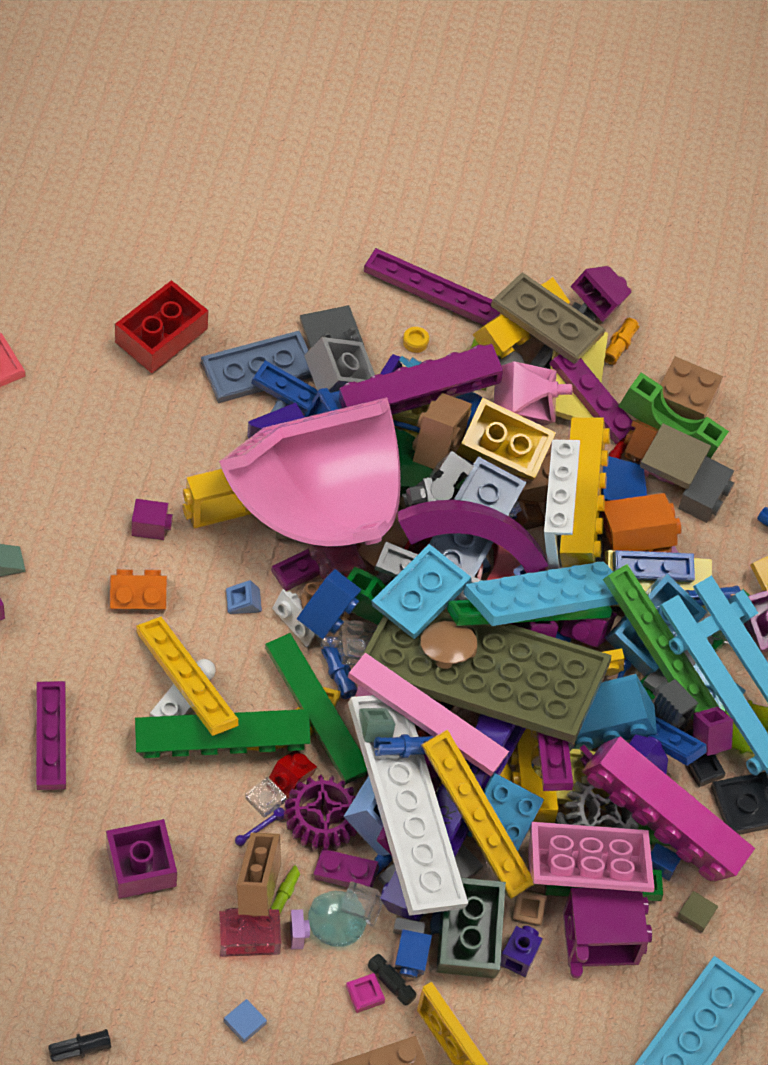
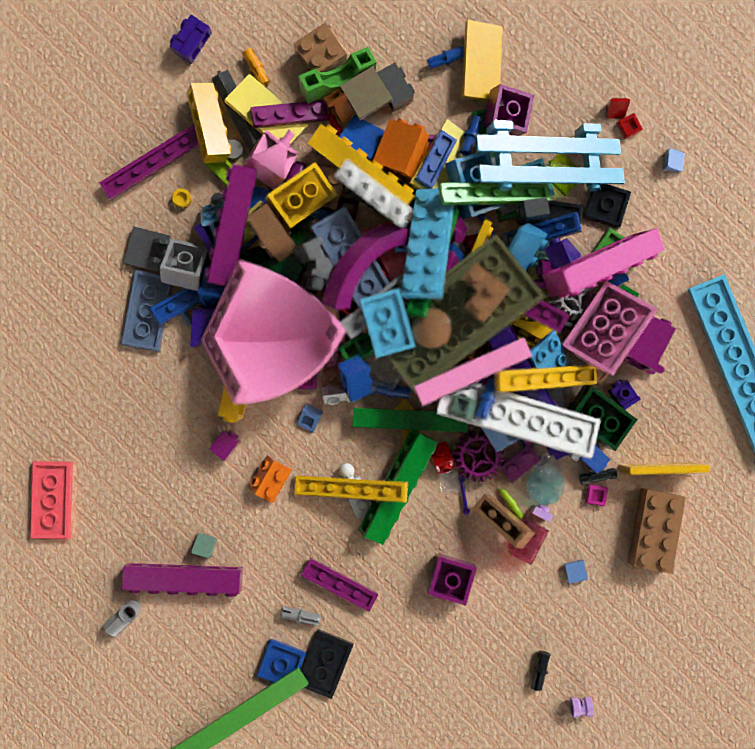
camera: 55 degrees left, 30 degrees up
(161, 326) = (85, 358): red brick -> none
(530, 671) = (489, 292): none -> medium nougat brick
(548, 317) = (223, 108): dark tan tile -> none
(594, 254) = (190, 38): none -> dark purple brick
(601, 290) = (217, 55): magenta torso -> none
(697, 911) = (654, 278): olive tile -> none
(713, 729) = (562, 198): magenta brick -> none

